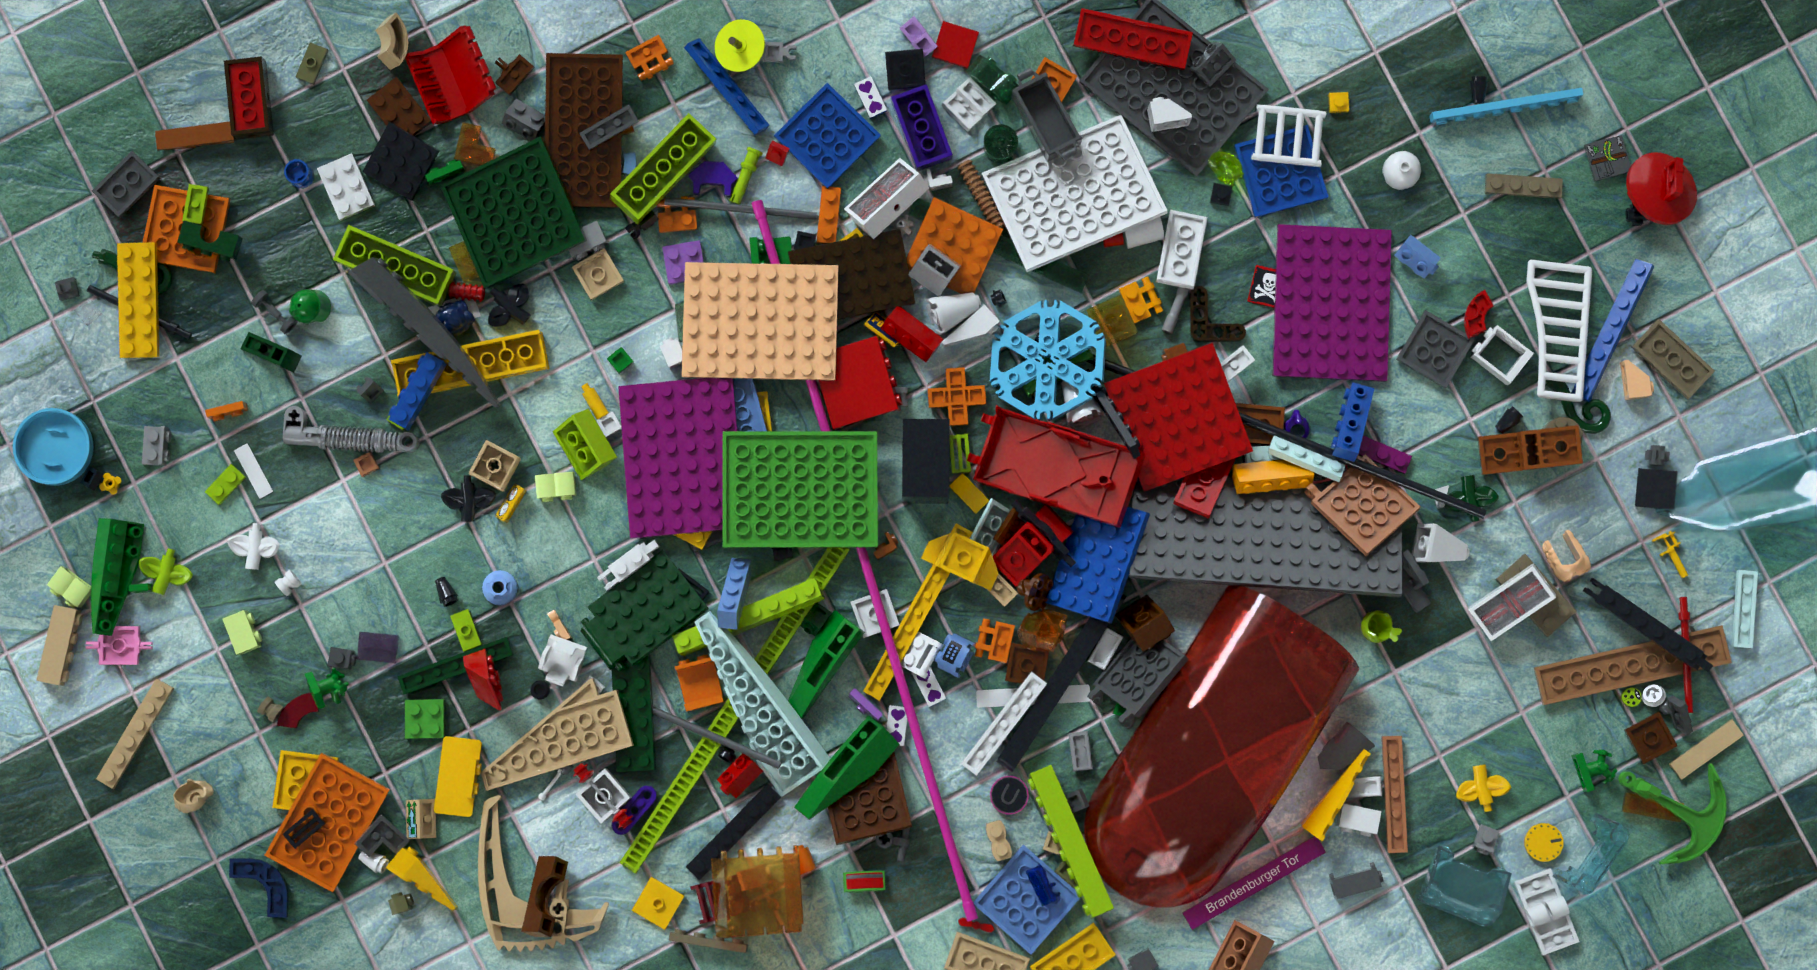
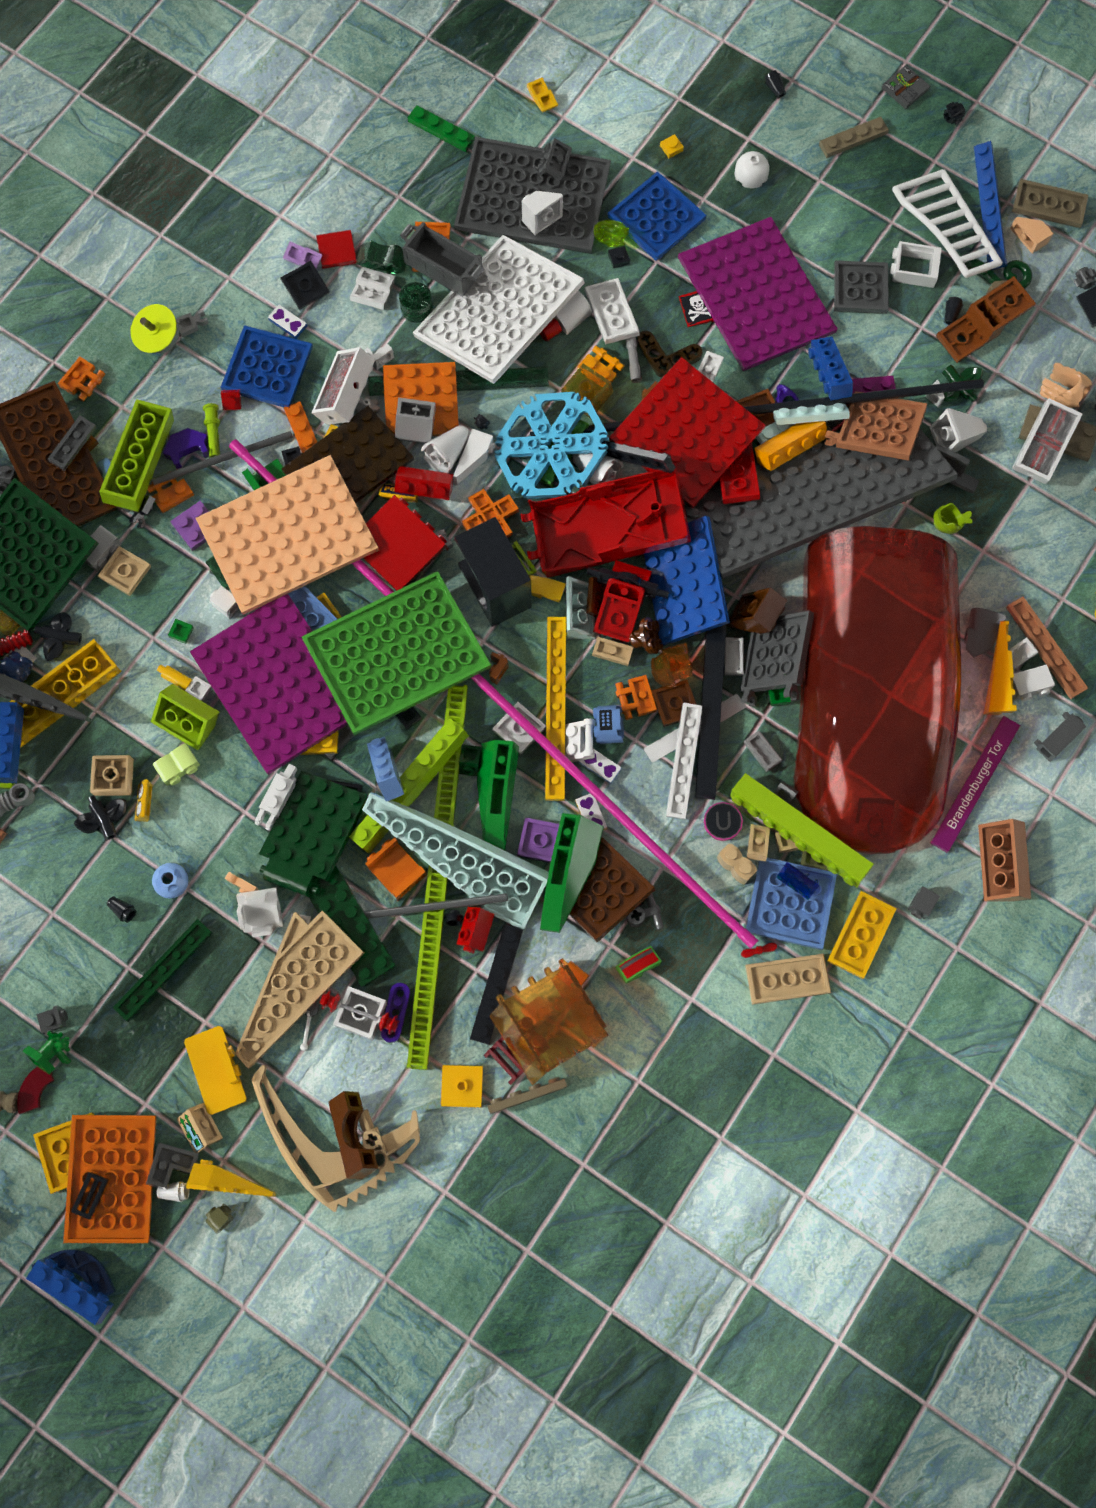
camera: 30 degrees left, 10 degrees down
(251, 898) = (70, 1291): none -> blue brick
(377, 647) = (81, 992): clear purple plate -> none
(425, 718) = (158, 1034): bright green plate -> none
(466, 630) = (156, 933): lime plate -> none
(484, 678) = (194, 963): red slope -> none
(540, 689) = (252, 951): black plate -> none
(726, 86) = (160, 369): blue plate -> none
(836, 724) = (537, 840): none -> medium lavender plate
(864, 705) = (552, 806): medium lavender plate -> none
(921, 128) = (342, 319): dark purple brick -> none
(963, 558) = (570, 637): yellow piece -> none
(981, 195) = (418, 346): medium nougat piece -> none
(1027, 832) = (758, 842): none -> tan plate
(1133, 39) = (480, 172): red plate -> none
(1300, 113) = (647, 164): white bar -> none
(1417, 257) = (805, 224): medium blue brick -> none
(1475, 314) = (877, 246): red tile -> none
(1498, 107) = (803, 85): medium azure plate -> none
(1661, 188) = (963, 80): red bracket -> none

